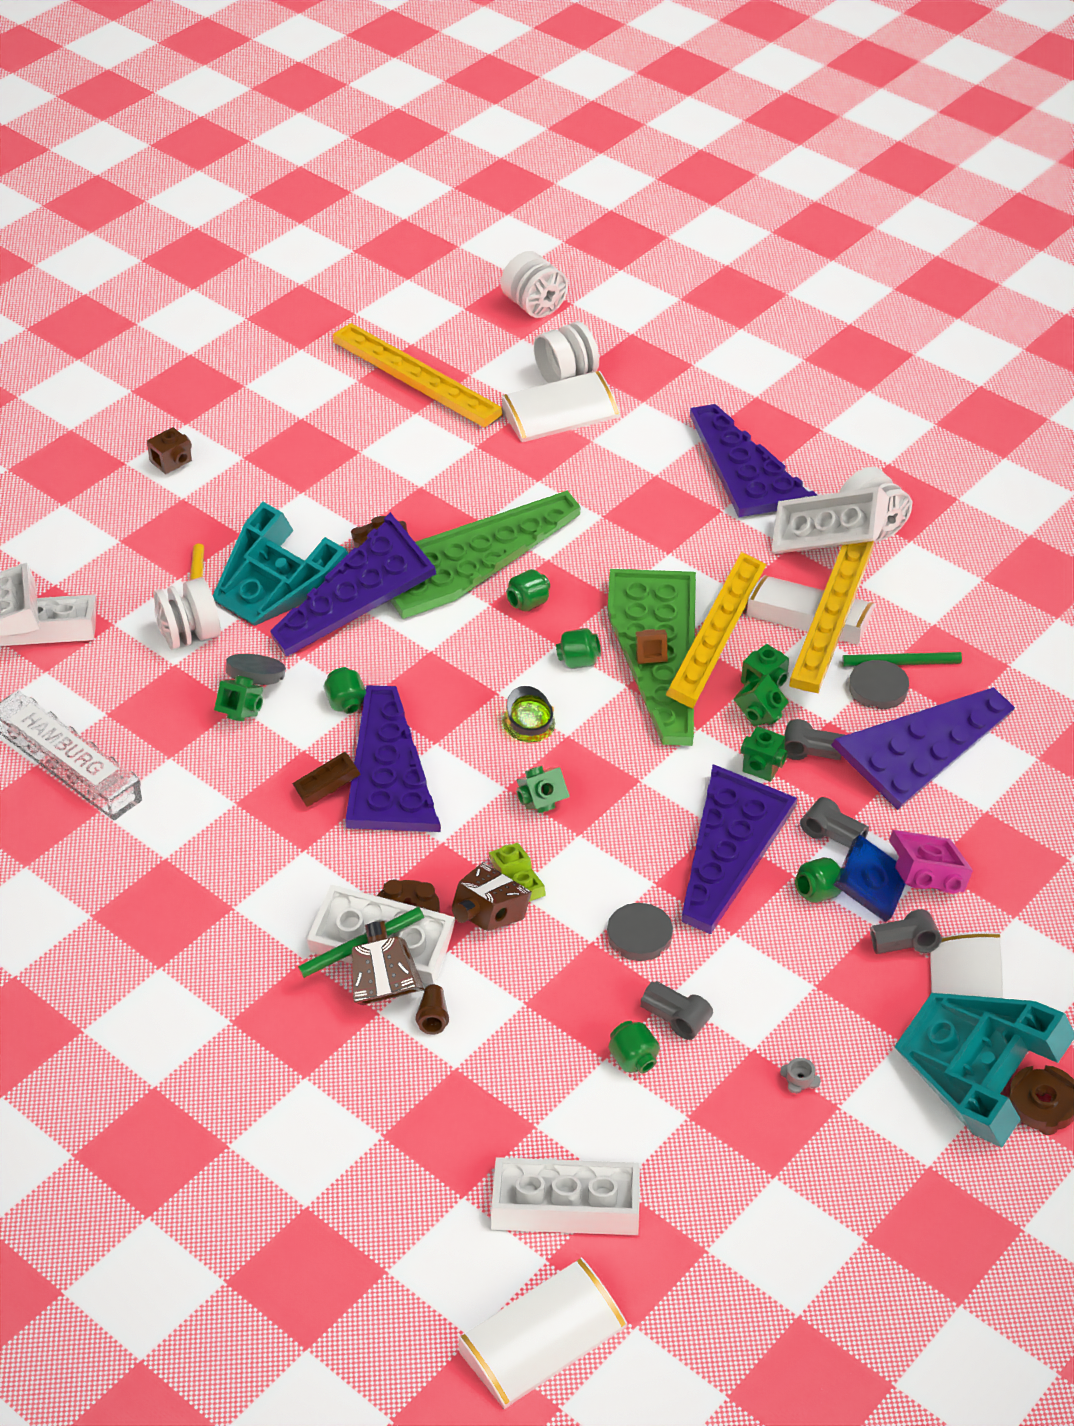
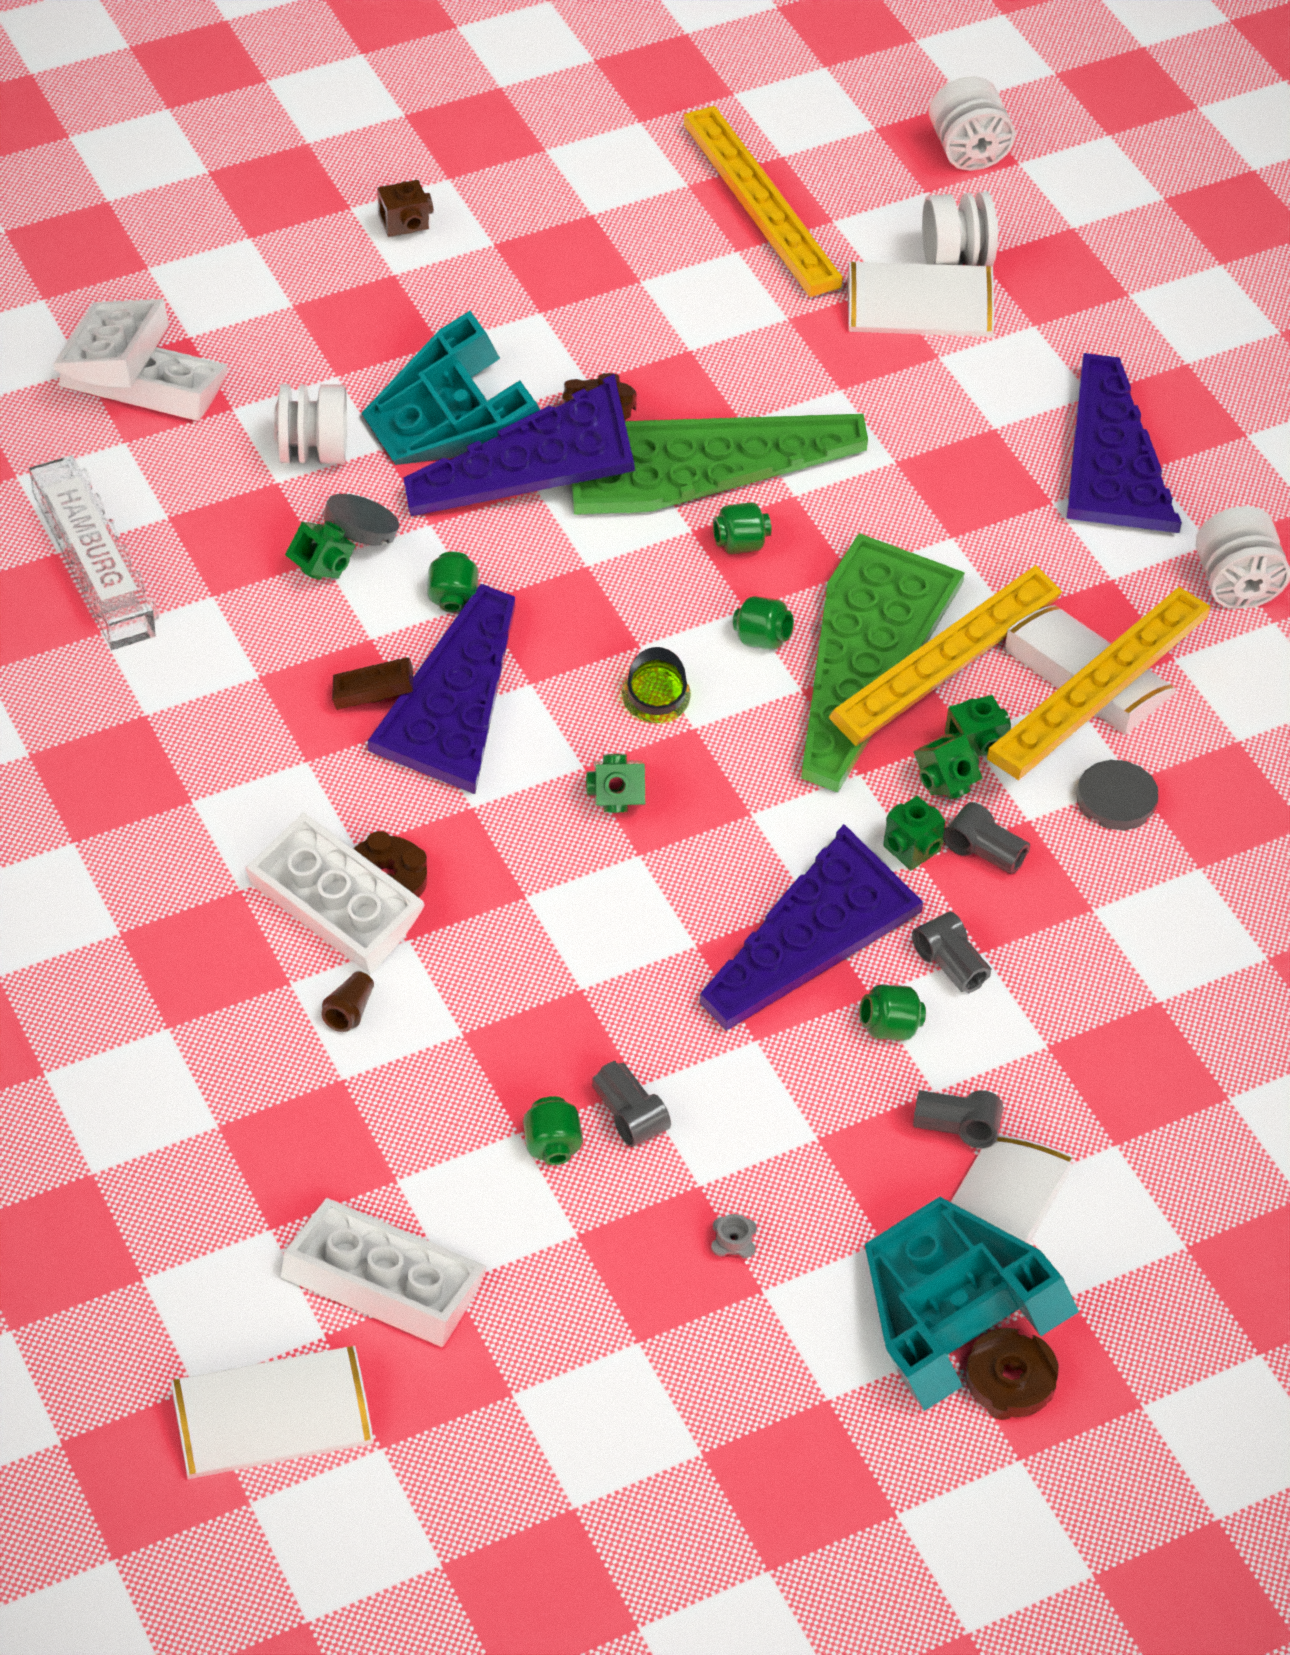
camera: 20 degrees right, 5 degrees up
(197, 561) = (364, 370): yellow piece -> none
(345, 949) = (302, 892): green bar -> none
(383, 967) = (310, 931): reddish brown torso -> none
(489, 899) = (479, 894): reddish brown torso -> none
(516, 864) = (536, 876): lime slope -> none
(639, 931) = (642, 997): dark grey tile -> none
(651, 646) = (846, 649): dark orange tile -> none
(829, 520) = (1166, 561): white slope -> none
(871, 878) = (957, 1033): clear blue tile -> none
(905, 658) = (1171, 773): green bar -> none
(916, 748) = (1109, 892): dark purple wing -> none
(930, 862) = (1039, 1038): dark pink plate -> none

